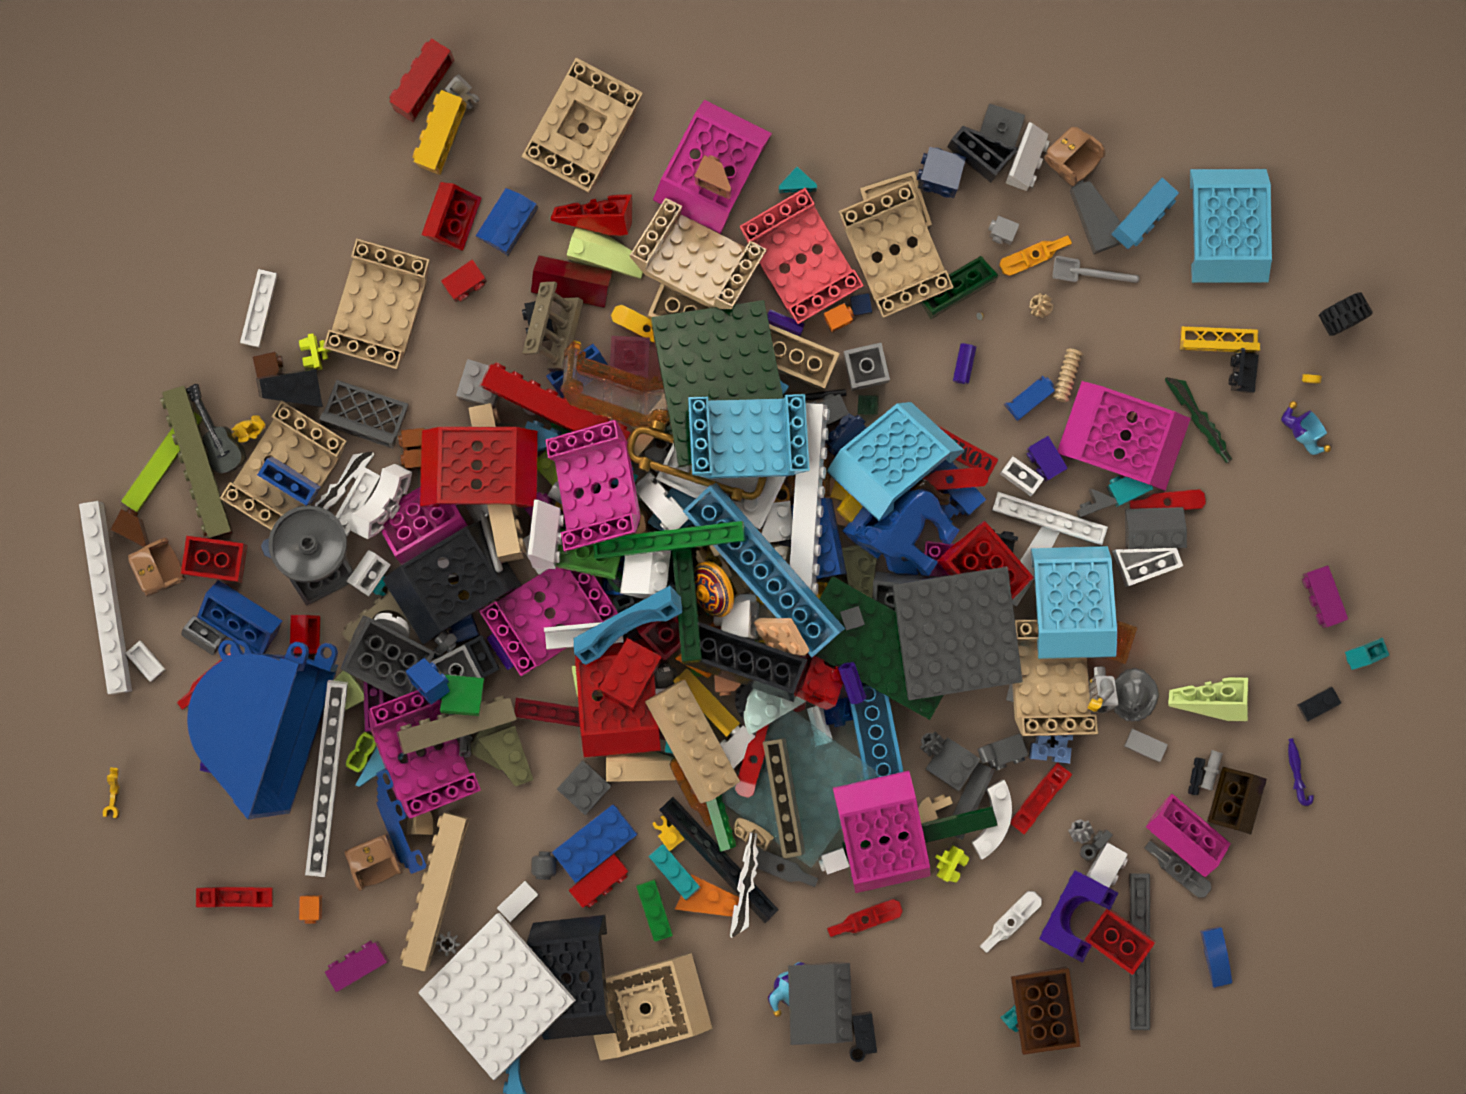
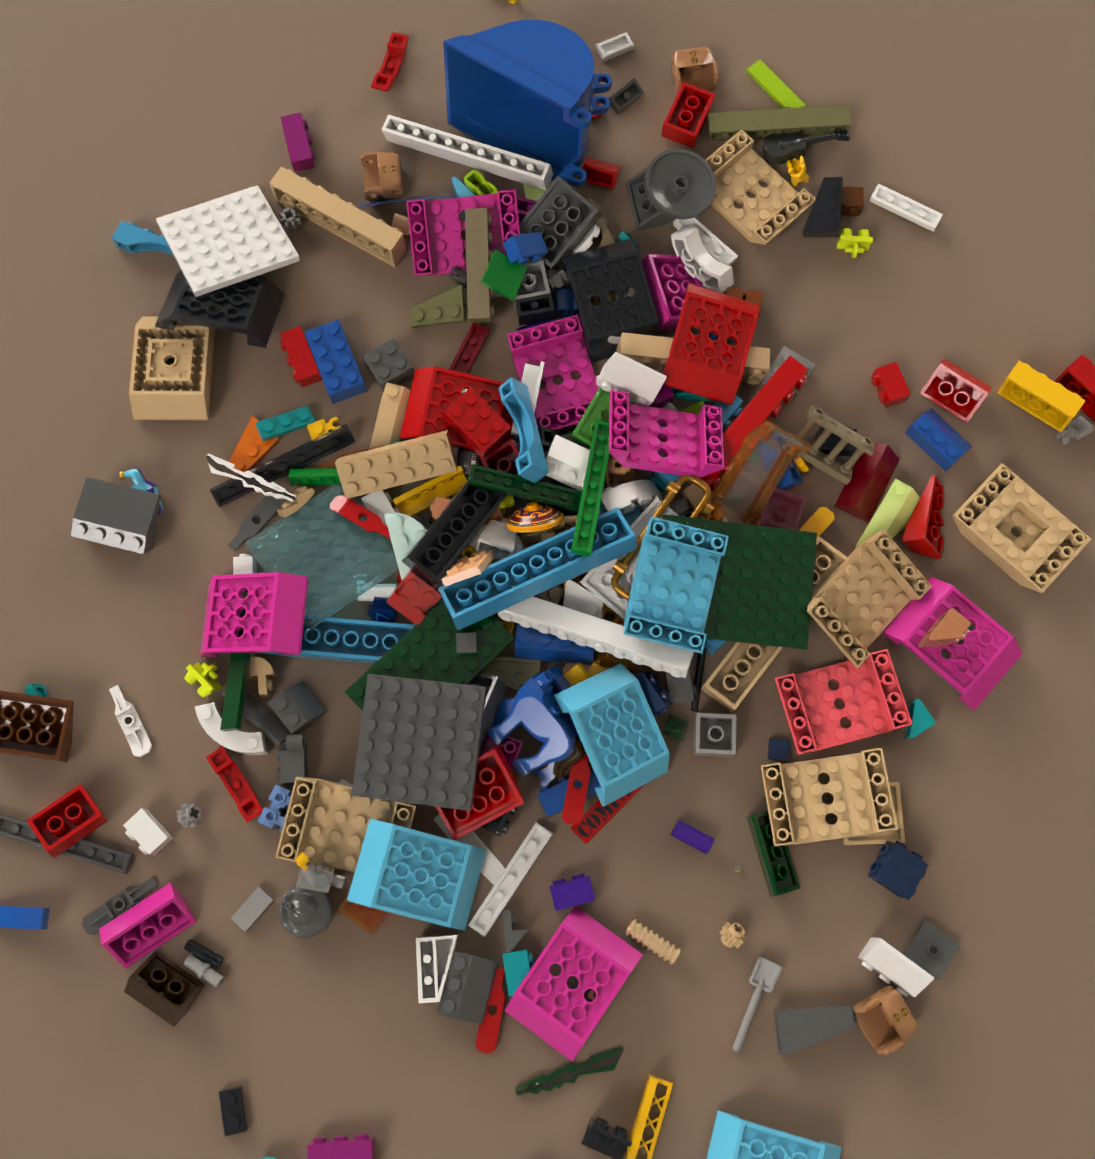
camera: 105 degrees right, 10 degrees down
(105, 597) = (679, 26): white brick -> none
(130, 527) = (734, 60): reddish brown slope -> none
(239, 617) = (630, 124): blue slope -> none
(289, 481) = (741, 186): blue brick -> none
(310, 908) = (360, 118): orange brick -> none
(352, 470) = (722, 231): sword -> none
(358, 429) = (772, 264): dark grey fence -> none
(368, 573) = (639, 233): white brick -> none
(378, 304) = (884, 306): tan slope -> none
(517, 901) = (307, 286): white tile -> none
(543, 866) = (330, 312): dark grey head -> none
(654, 910) = (257, 396): green brick -> none
(784, 798) = (315, 531): dark tan brick -> none
(785, 323) = (777, 667): dark purple axle -> none
(838, 317) = (771, 723): orange brick -> none
(852, 683) = (403, 625): dark purple axle -> none
(864, 1035) = (74, 550): black hinge -> none
(877, 915) = (182, 595): red piece -> none
(932, 744) = (323, 693): dark grey gear -> none
(981, 152) = (910, 919): black wedge -> none
(1003, 230) = (821, 918): light grey brick -> none
(1021, 476) = (561, 860): white brick -> none
(1024, 259) = (785, 933): light orange piece -> none
(1030, 398) = (639, 895): blue window -> none
(1058, 928) = (100, 762): dark purple arch -> none
(1100, 839) = (173, 831): dark grey plate -> none
(1145, 213) = (805, 1079): dark azure brick -> none
(1219, 700) = (271, 1002): yellowish green wedge -> none
(1295, 763) = (156, 1060): dark purple piece -> none

